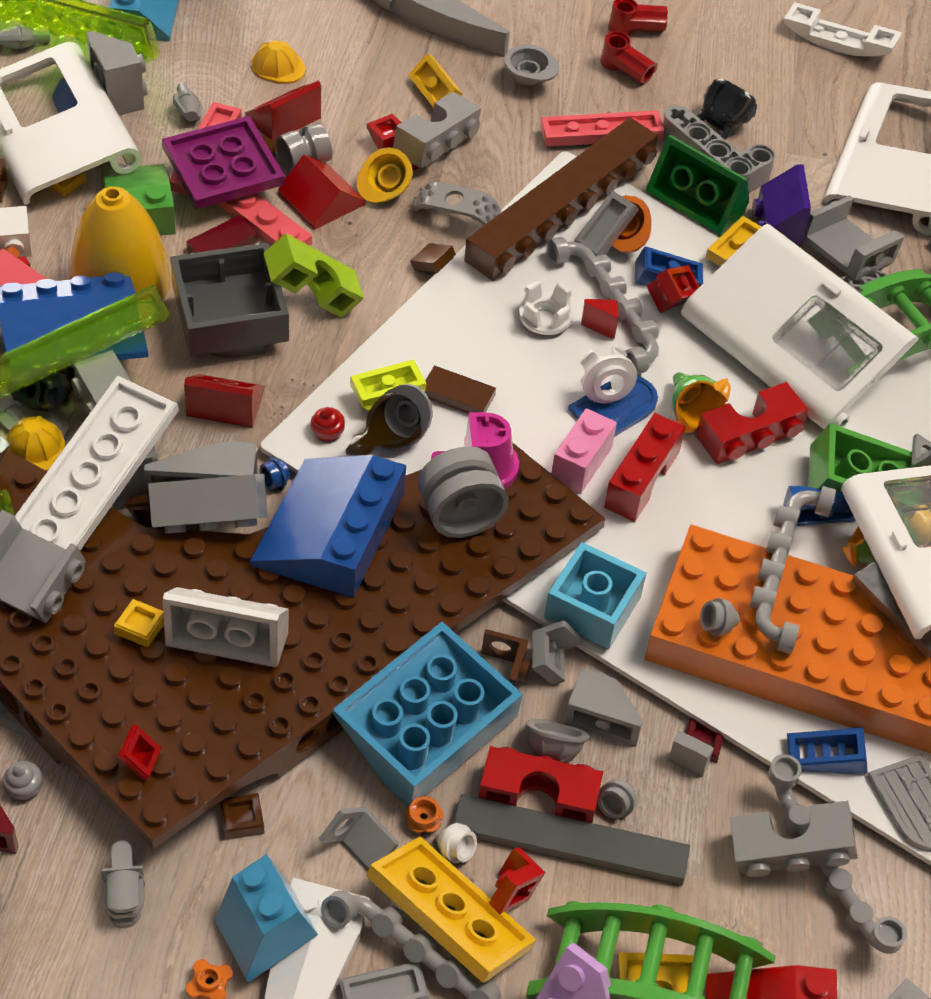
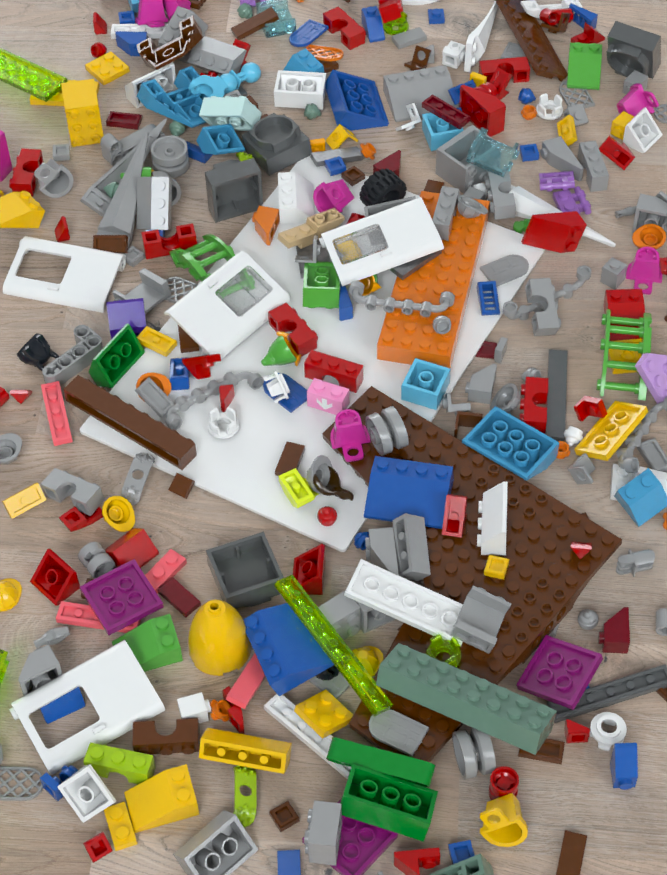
camera: 90 degrees left, 0 degrees up
(259, 573) = (454, 515): none -> slope
(296, 264) = (222, 529): lime arch -> none
(646, 92) = (20, 395): none -> red slope

